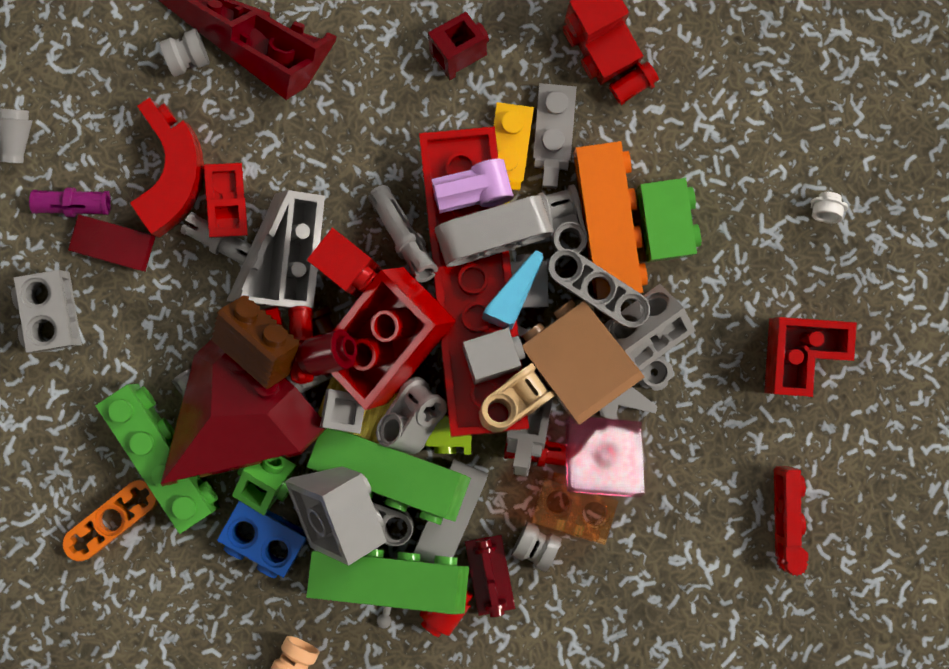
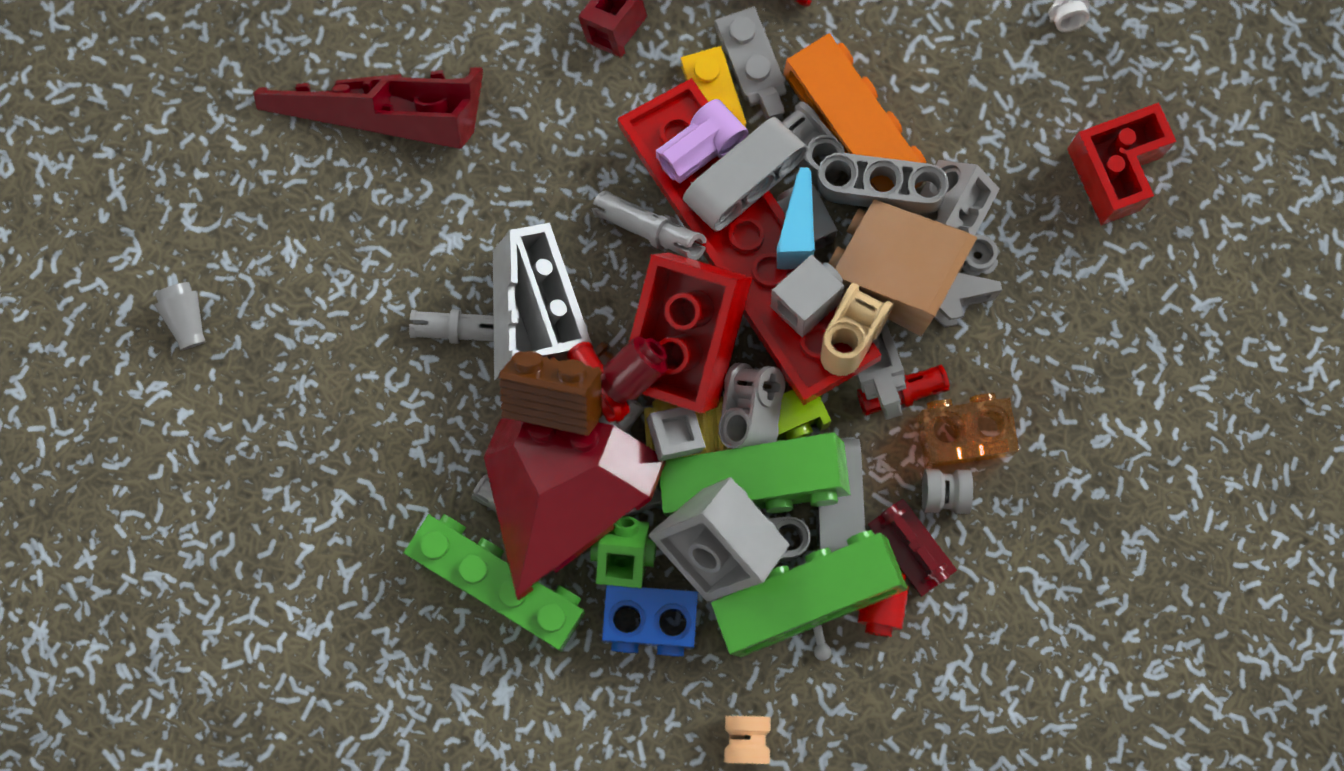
camera: 30 degrees left, 10 degrees down
(57, 308) = (310, 478): light grey brick -> none
(70, 202) = (275, 359): magenta pin -> none
(96, 544) = (479, 644): orange beam -> none
(111, 243) = (340, 380): dark red slope -> none
(182, 53) = (330, 150): light grey wheel -> none
(182, 175) = (386, 292): red arch -> none
(225, 200) = (443, 280): red slope -> none
(344, 263) = (612, 270): red arch -> none
(605, 457) = (971, 361): clear pink plate -> none
(668, 220) = (915, 93): bright green brick -> none
(789, 521) = (1195, 341): red hinge -> none

